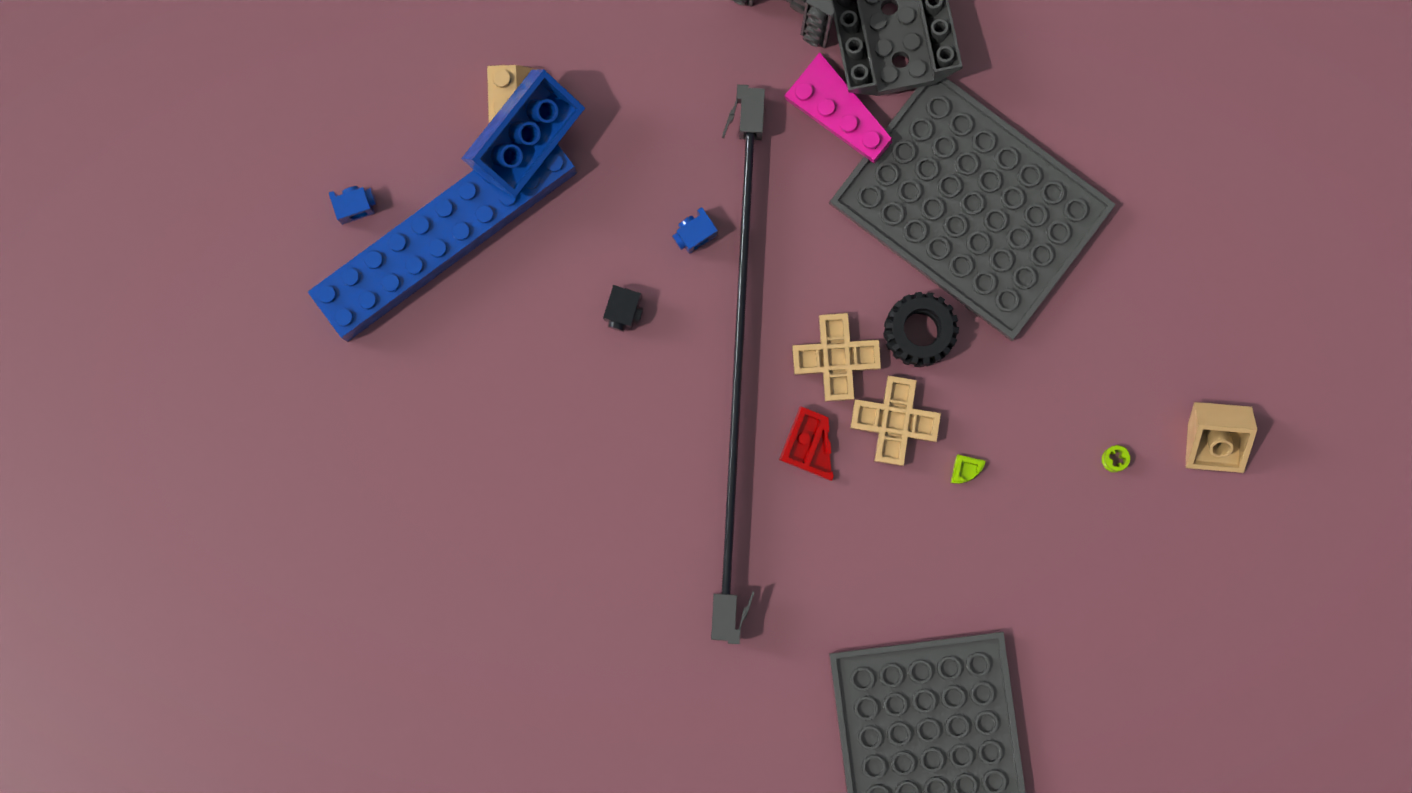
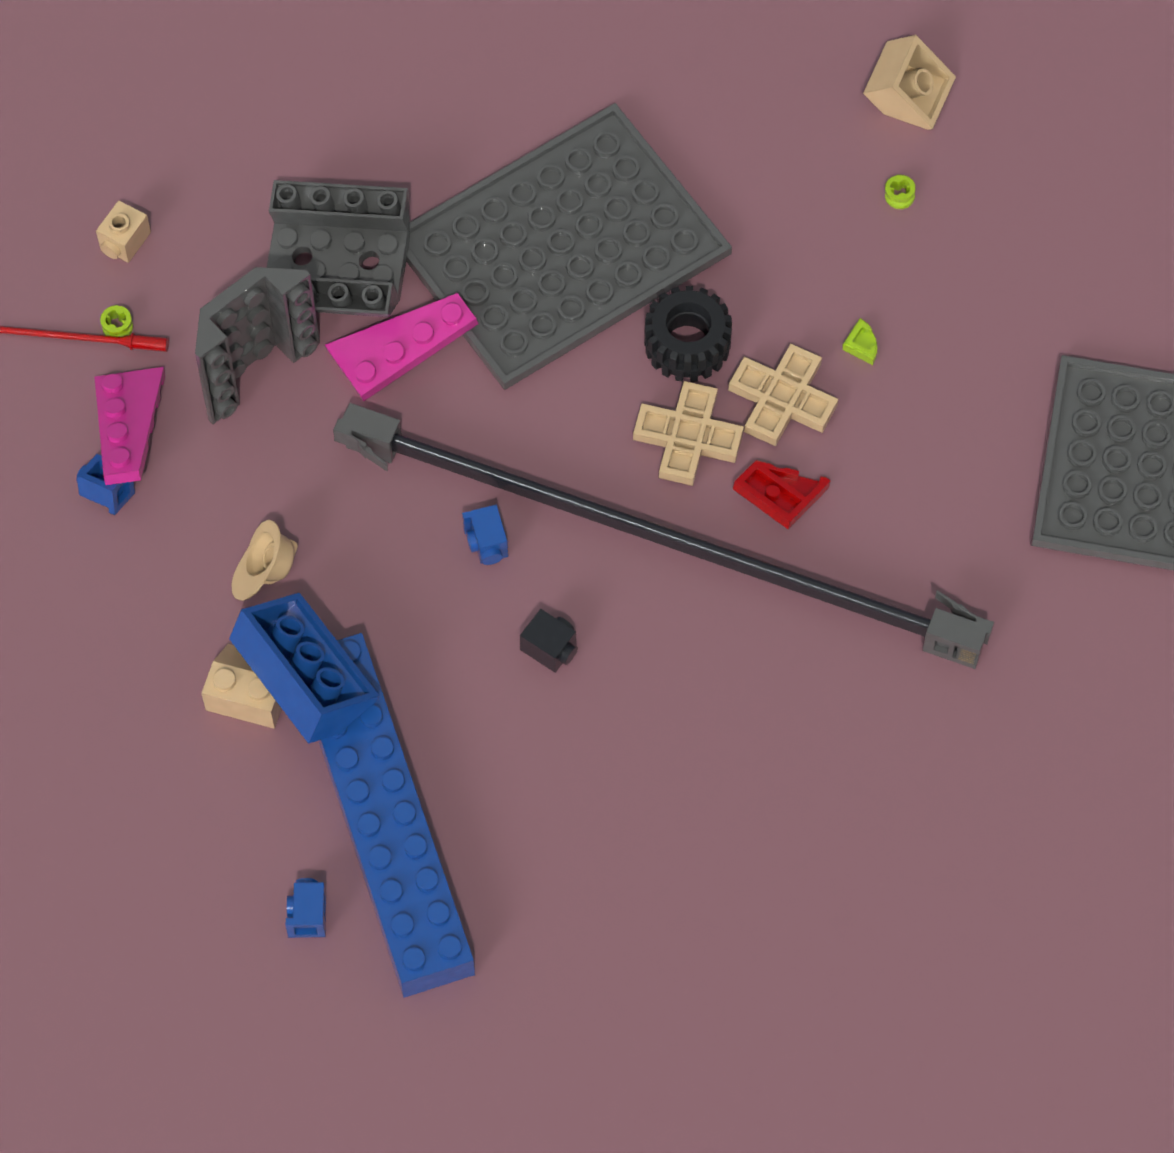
camera: 75 degrees left, 20 degrees down
(617, 73) = (264, 562): none -> tan piece

